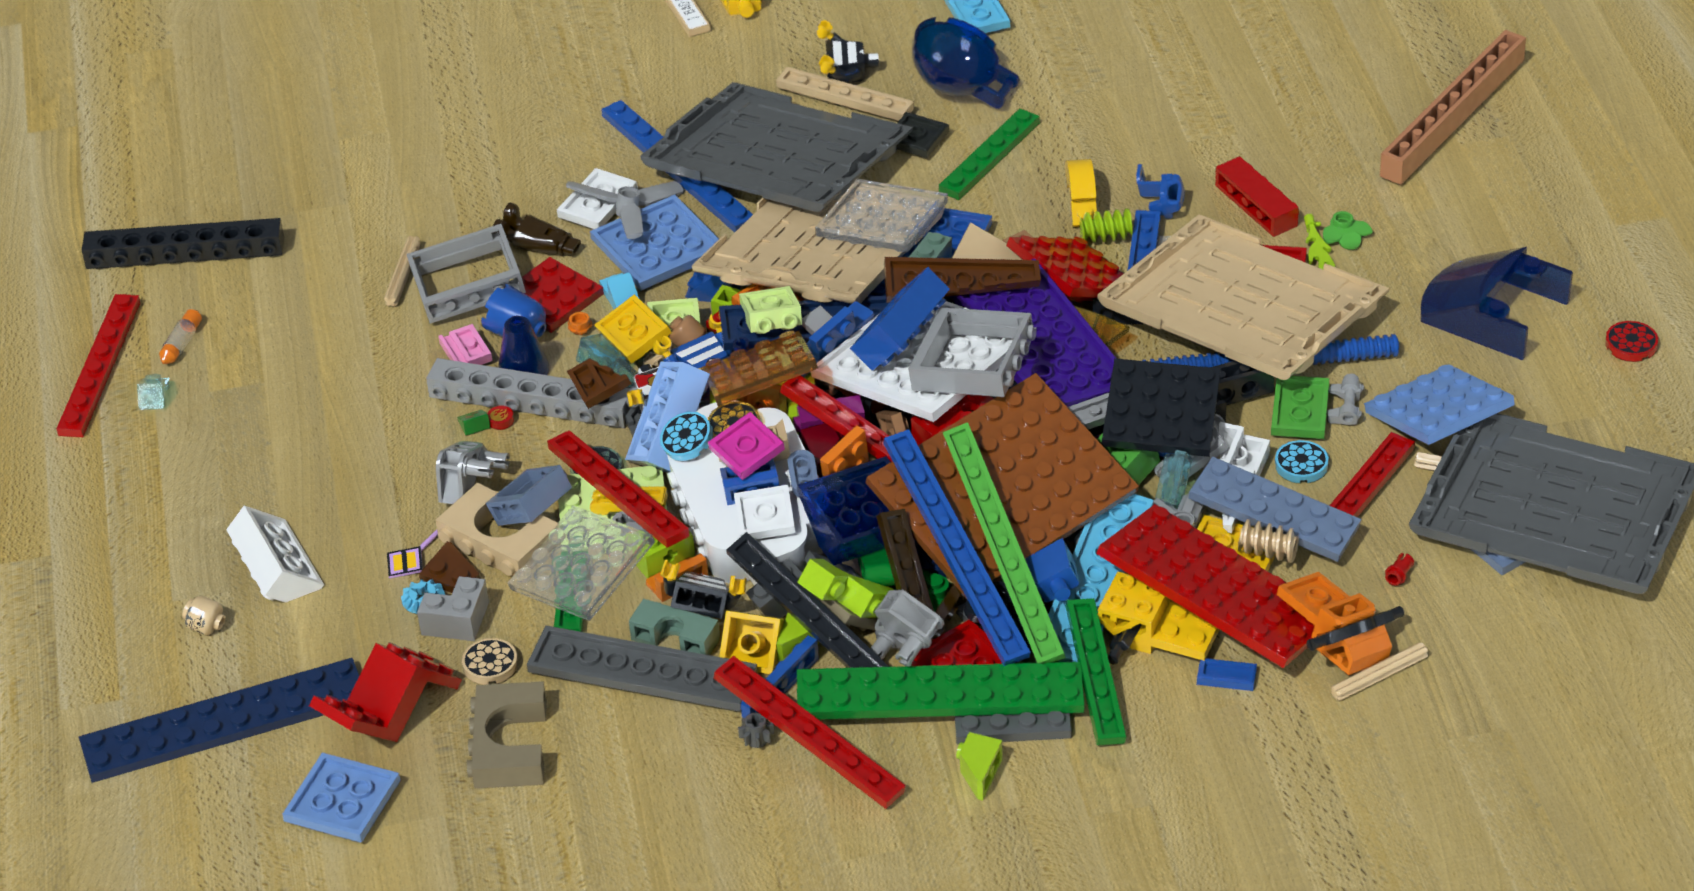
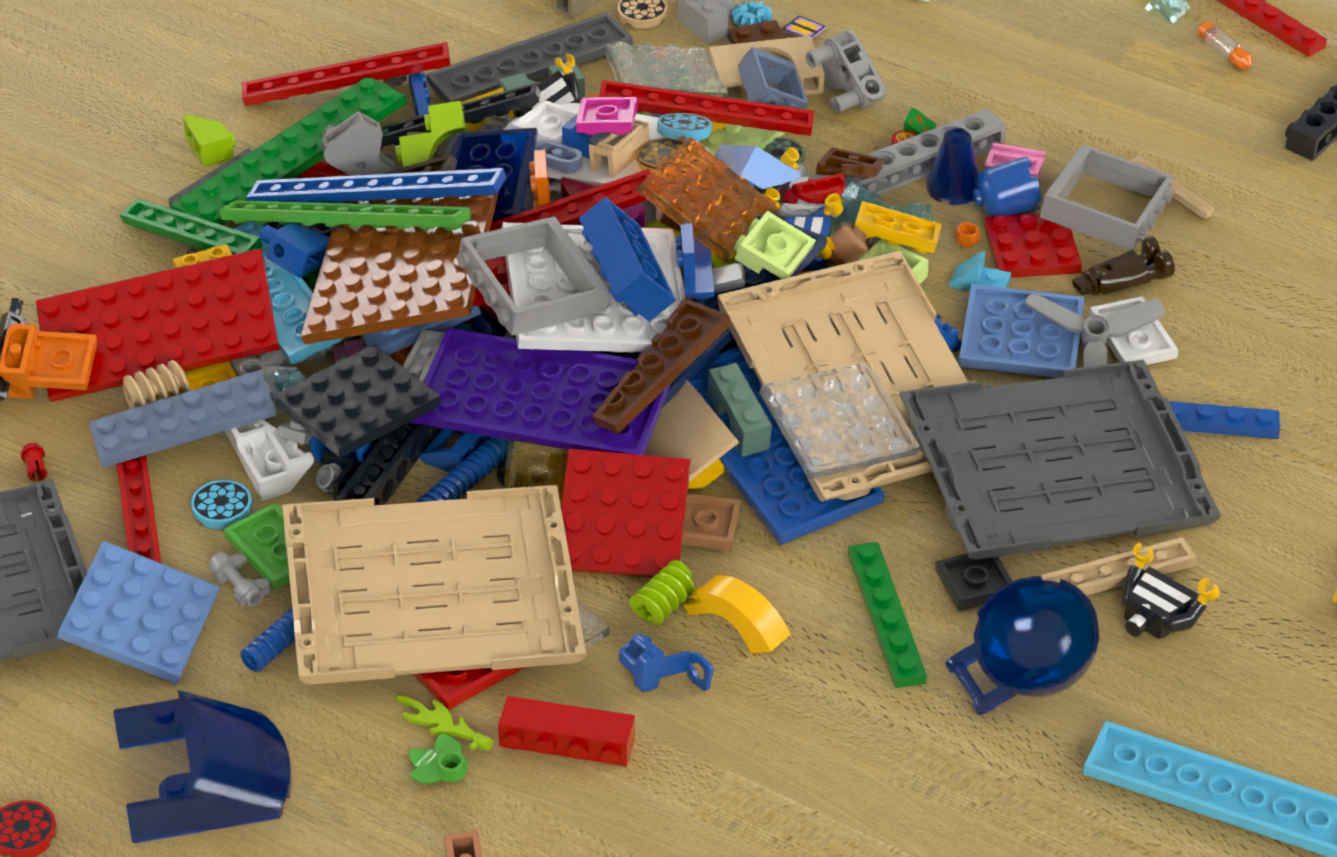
camera: 130 degrees right, 0 degrees up
(648, 359) = (819, 189): none -> red plate
(1144, 235) = (610, 606): blue plate -> none

